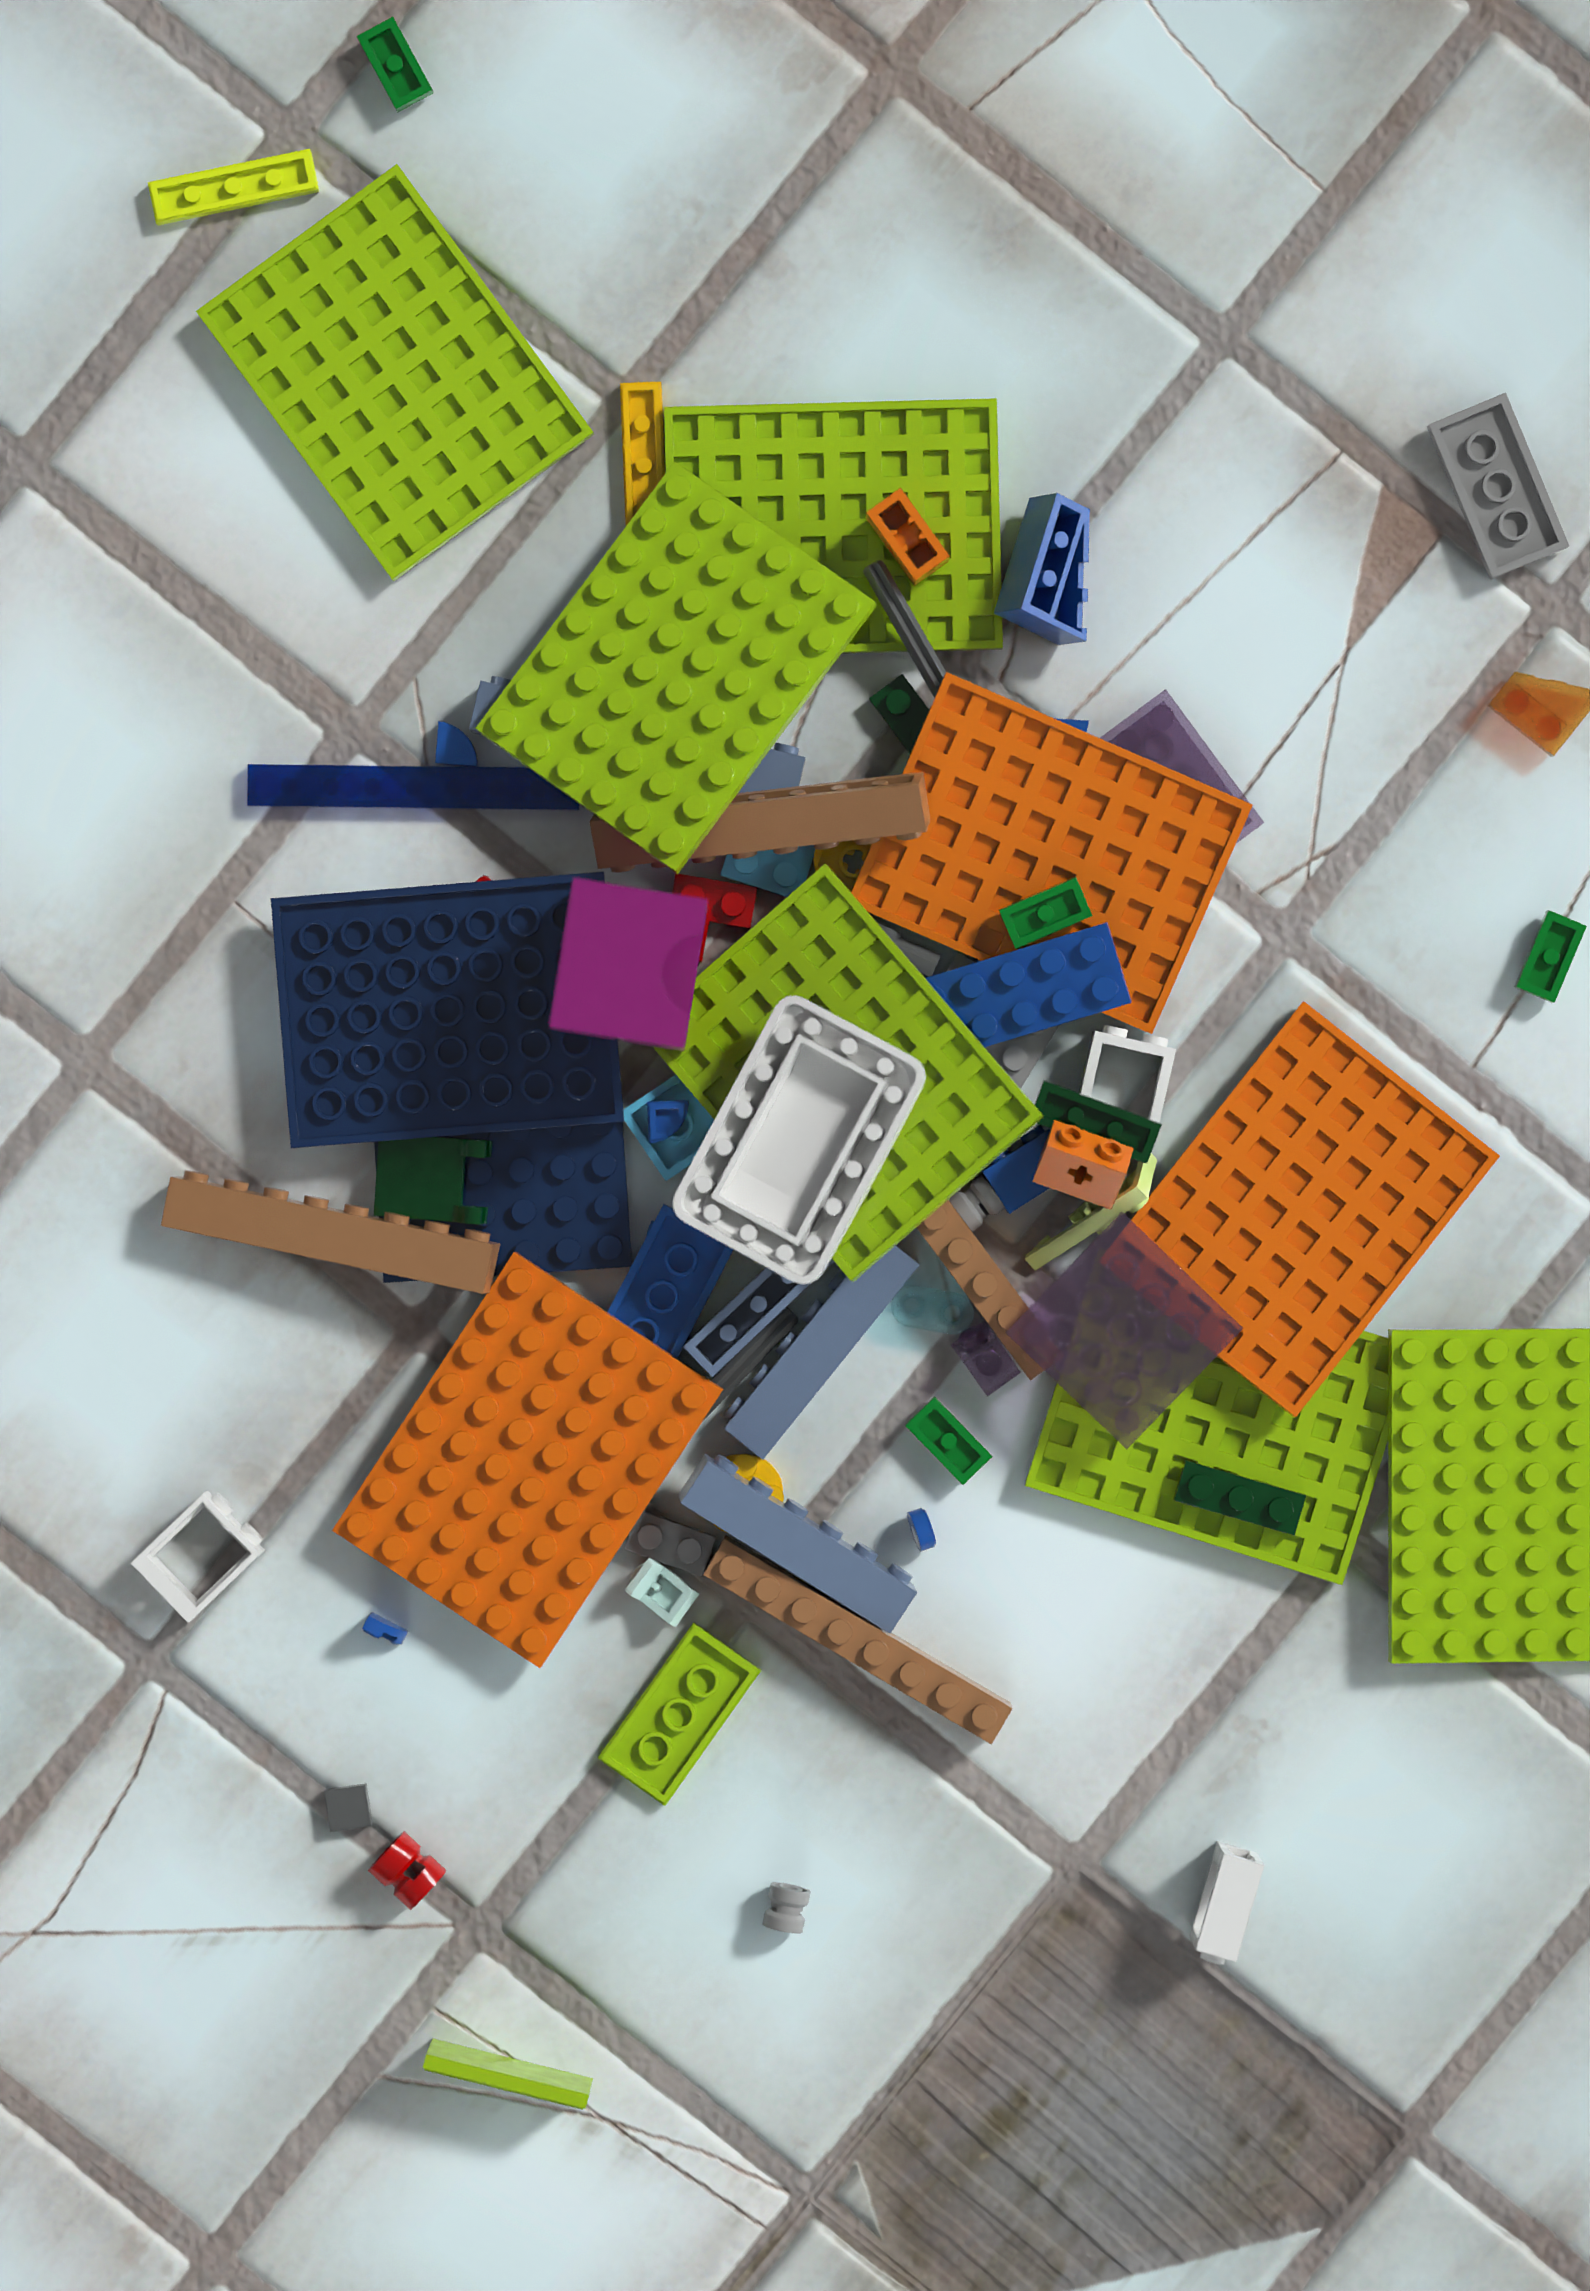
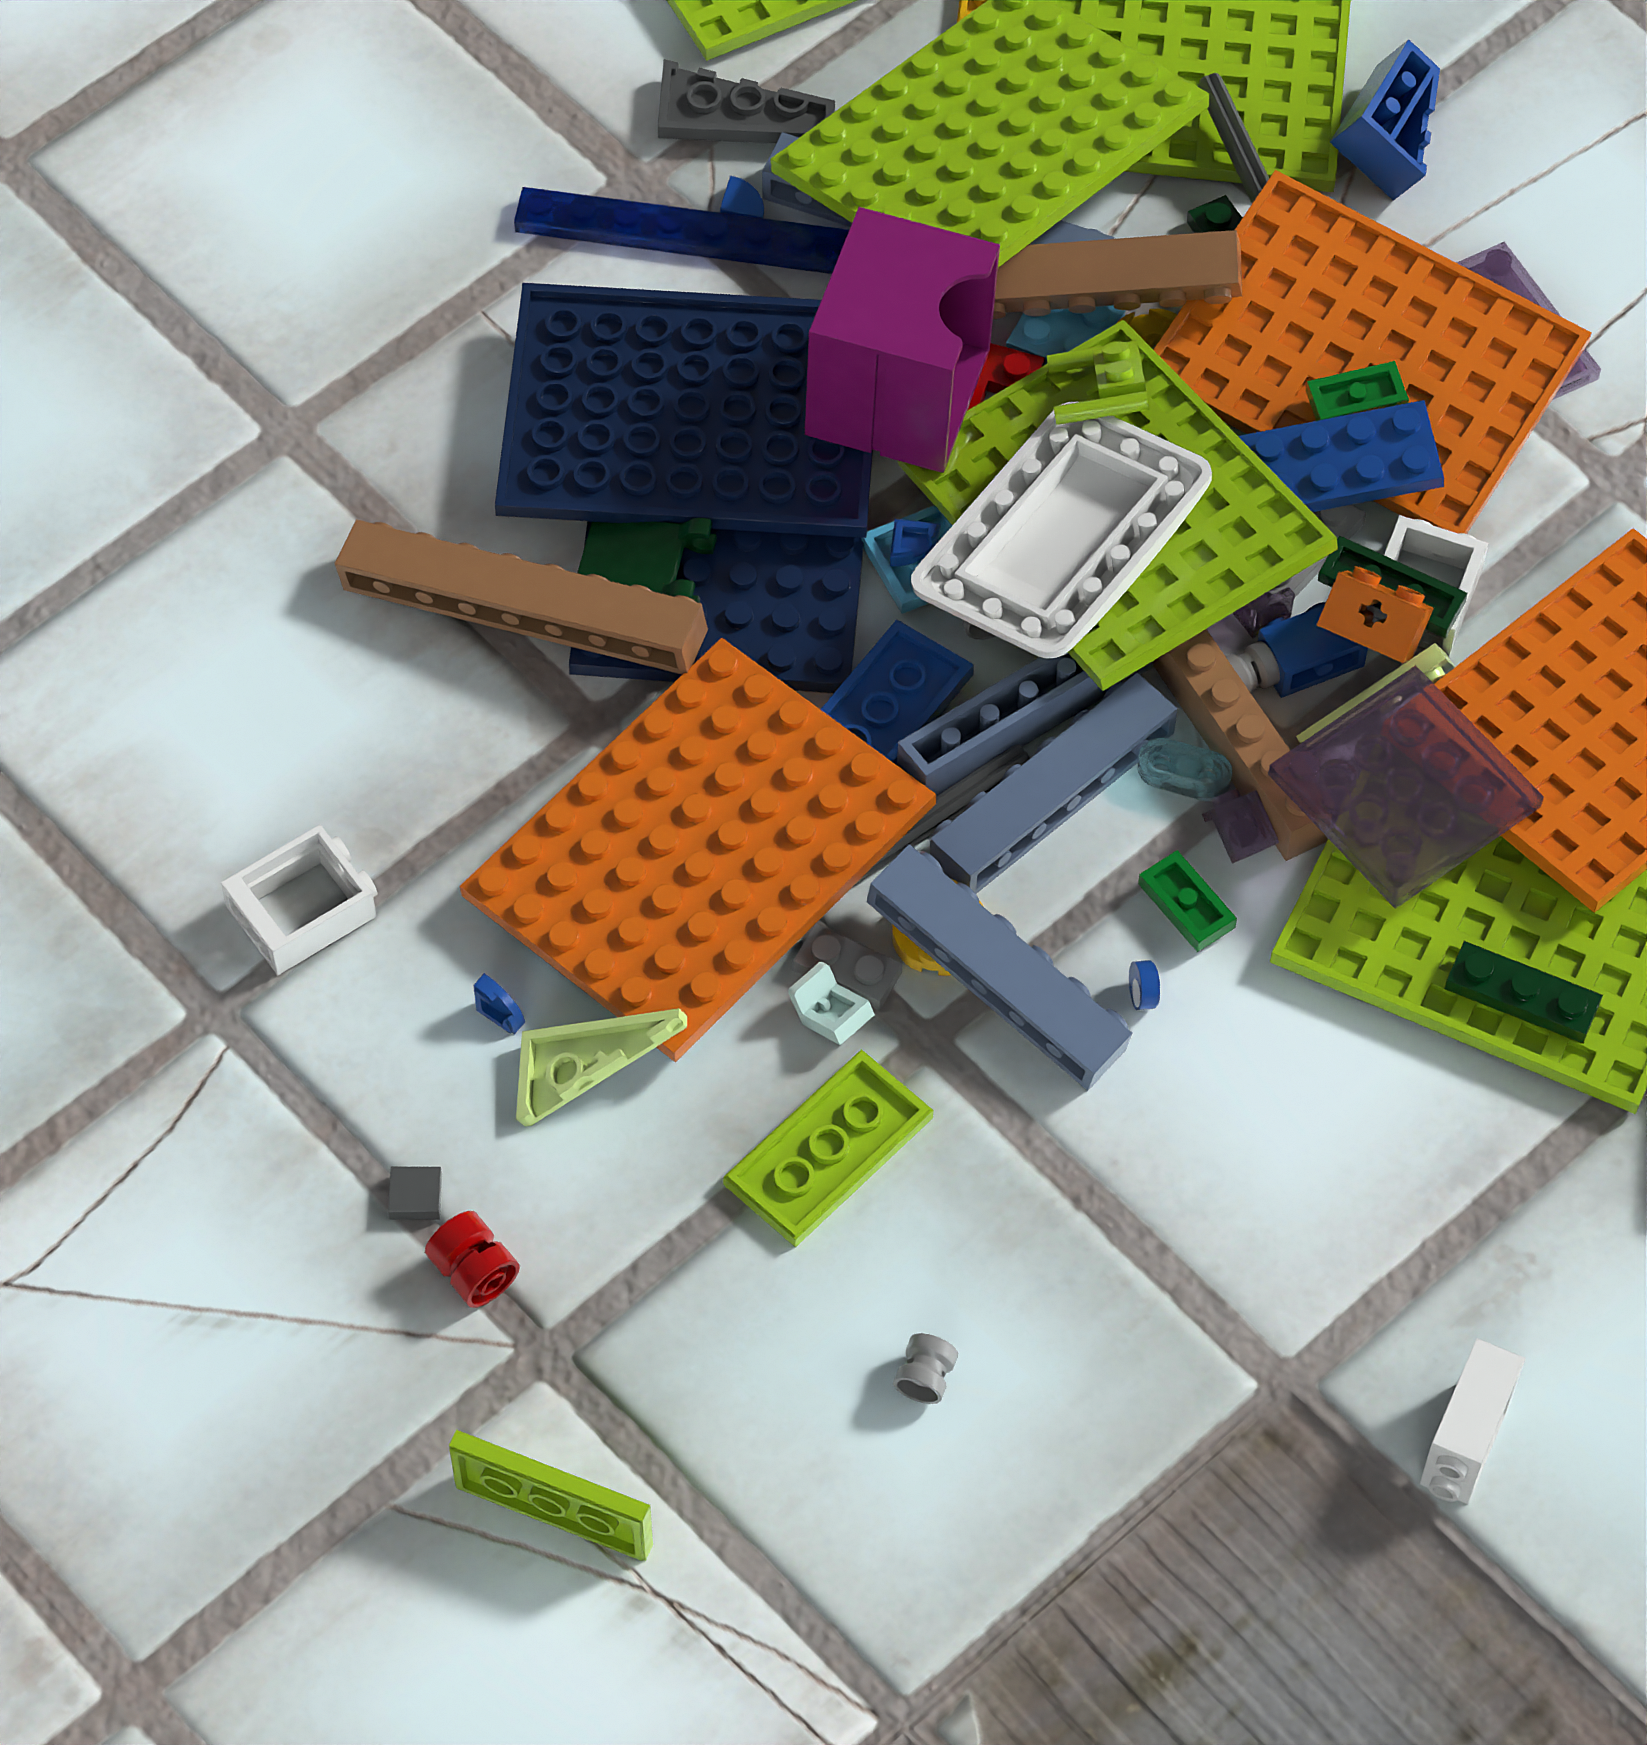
camera: 10 degrees right, 30 degrees down
(424, 642) = (723, 110): none -> dark grey wing
(457, 1676) = (573, 1058): none -> yellowish green wing
(828, 959) = (1118, 381): none -> lime plate
(858, 1639) = (1056, 1086): medium nougat brick -> none
(907, 537) = (1248, 59): orange brick -> none

